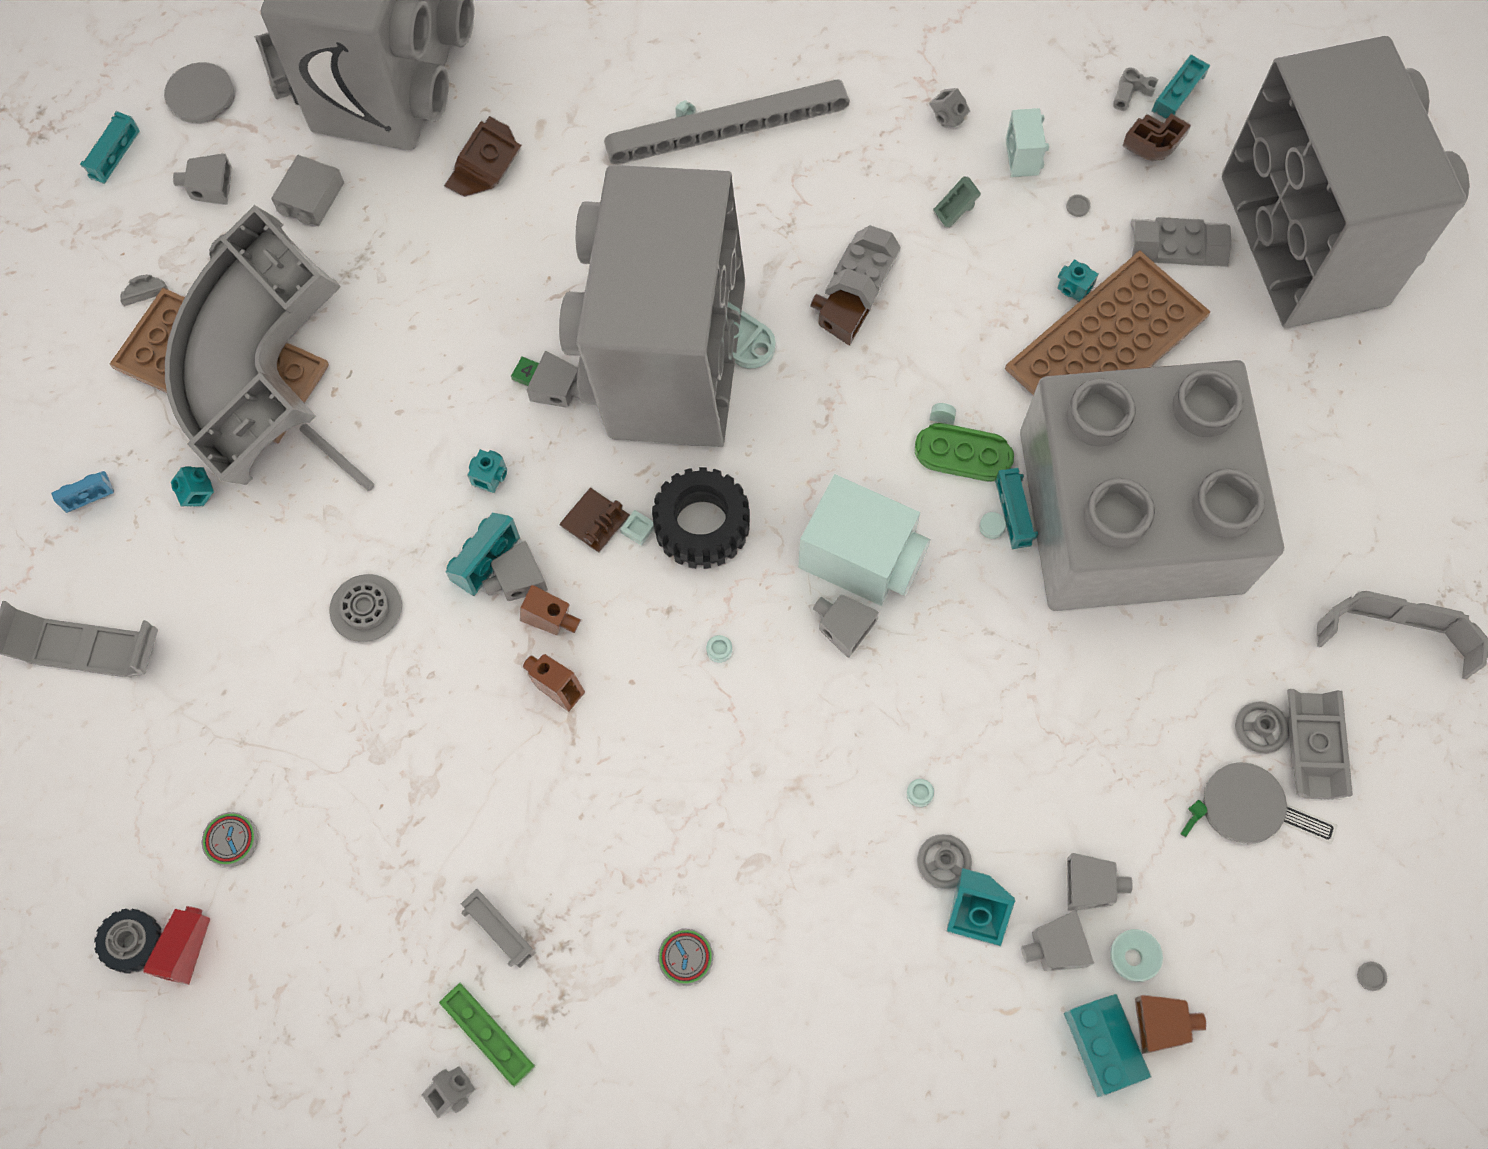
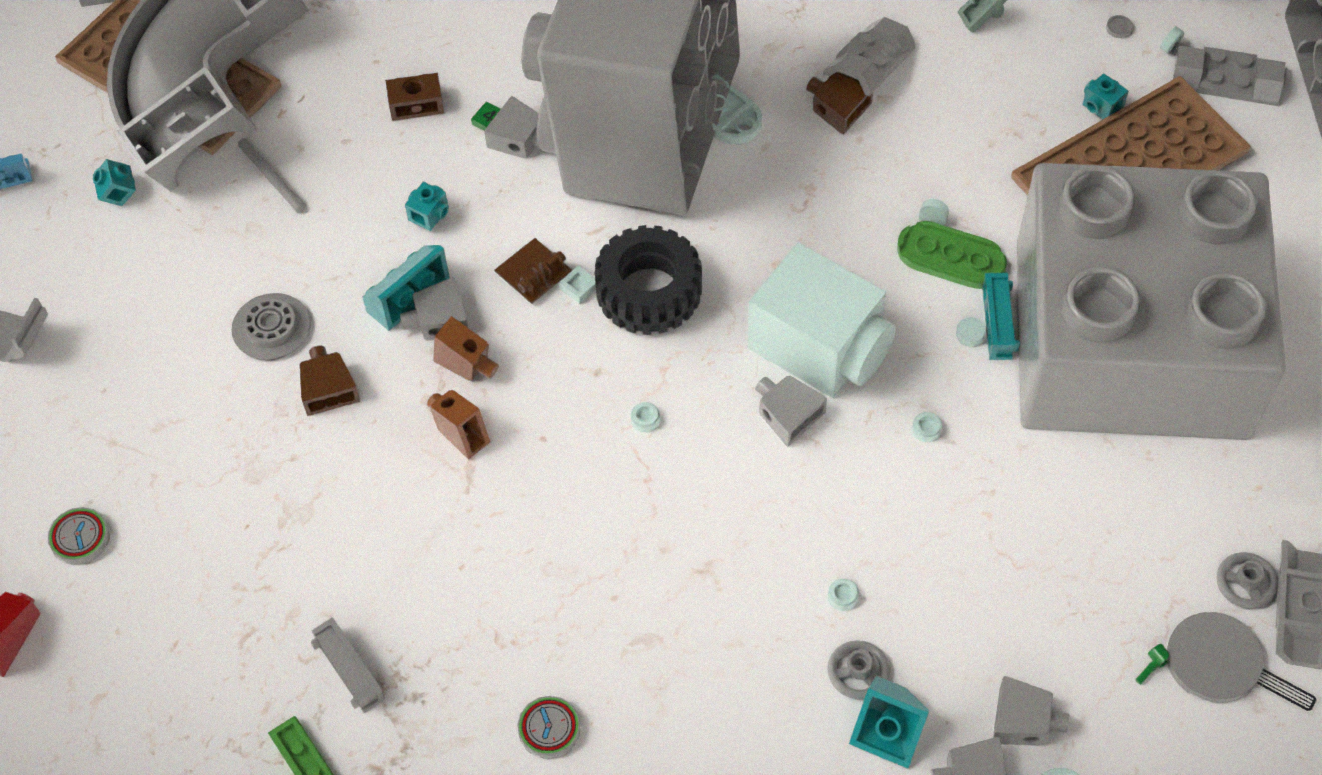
camera: 10 degrees right, 10 degrees down
(426, 657) = (326, 382): none -> reddish brown torso
(466, 365) = (414, 96): none -> reddish brown brick
(968, 622) = (927, 427): none -> light aqua tile
(1127, 214) = (1172, 39): none -> light aqua tile

